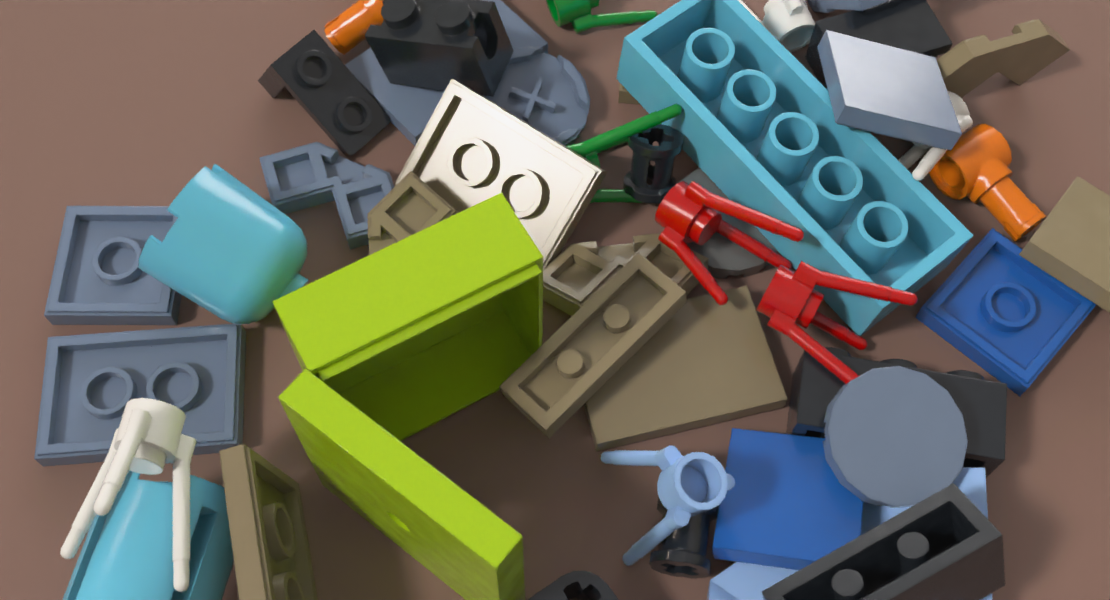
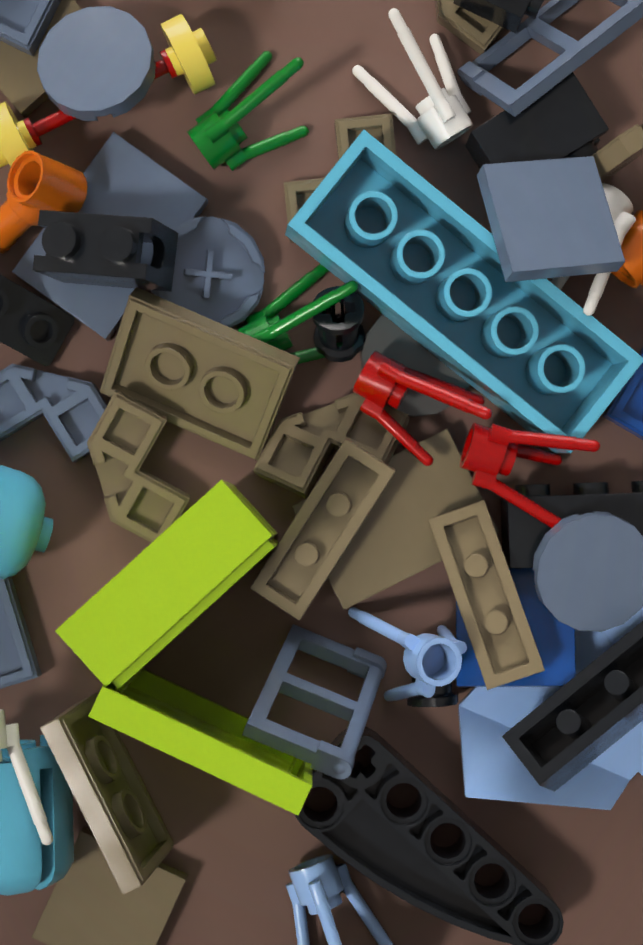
camera: 10 degrees left, 25 degrees up
(542, 536) = (320, 754): none -> sand blue window
(766, 450) = (486, 595): none -> dark tan plate

